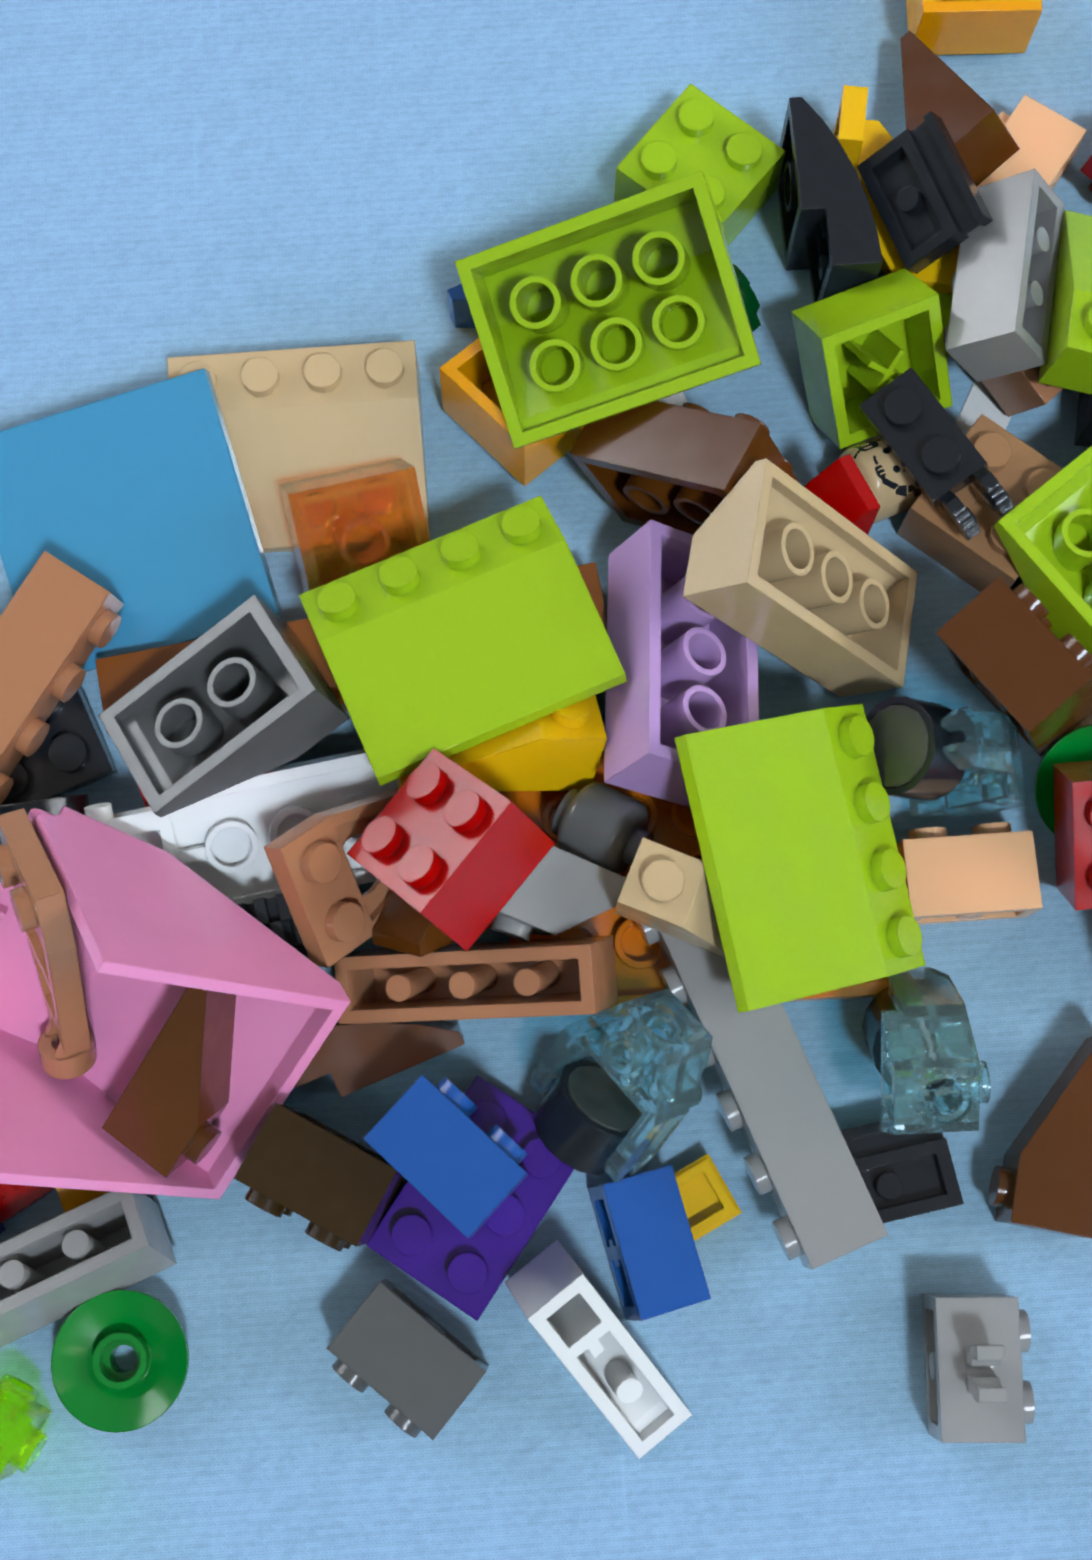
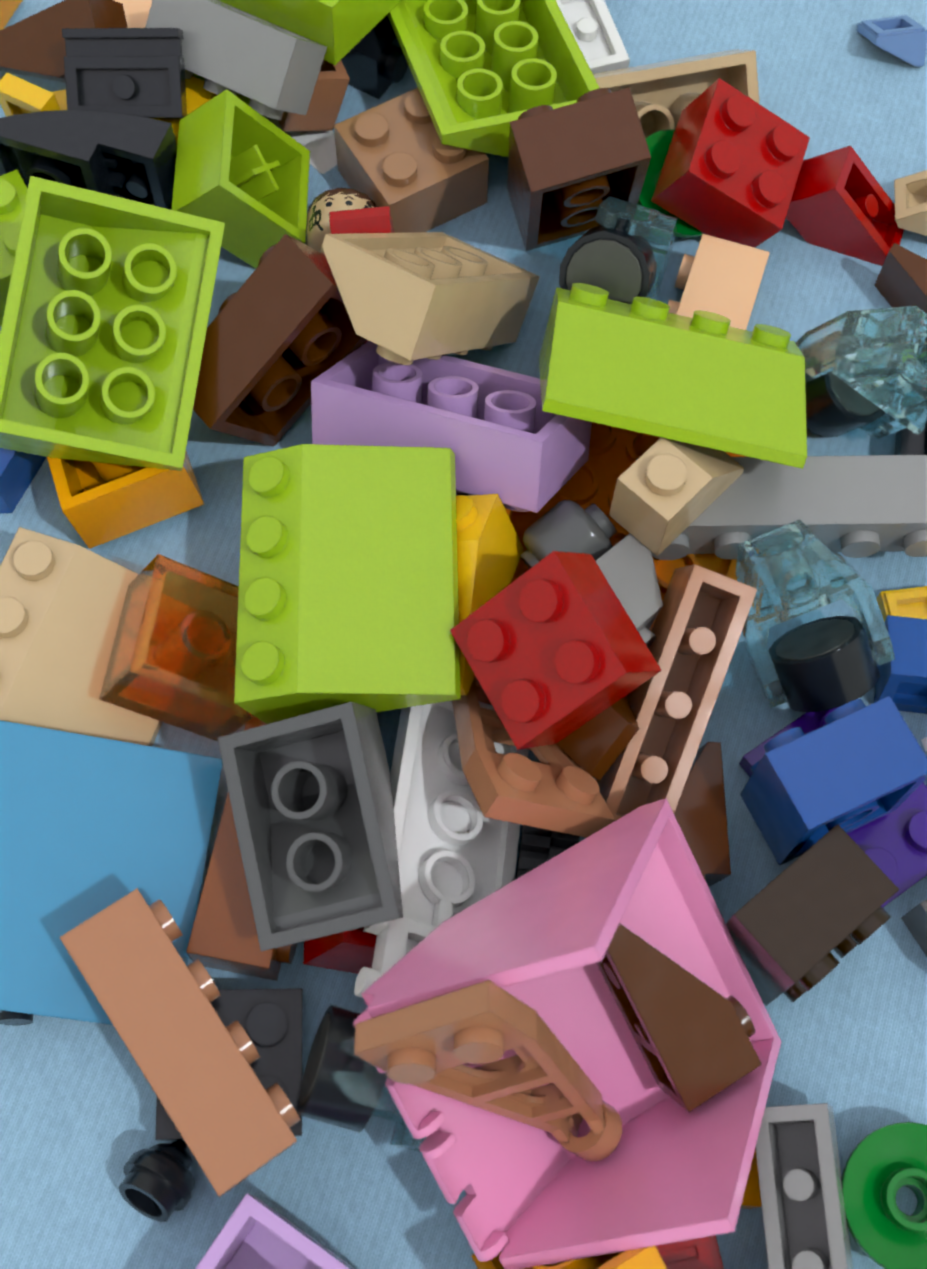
camera: 70 degrees left, 10 degrees down
(933, 449) = (355, 162): black hinge -> none

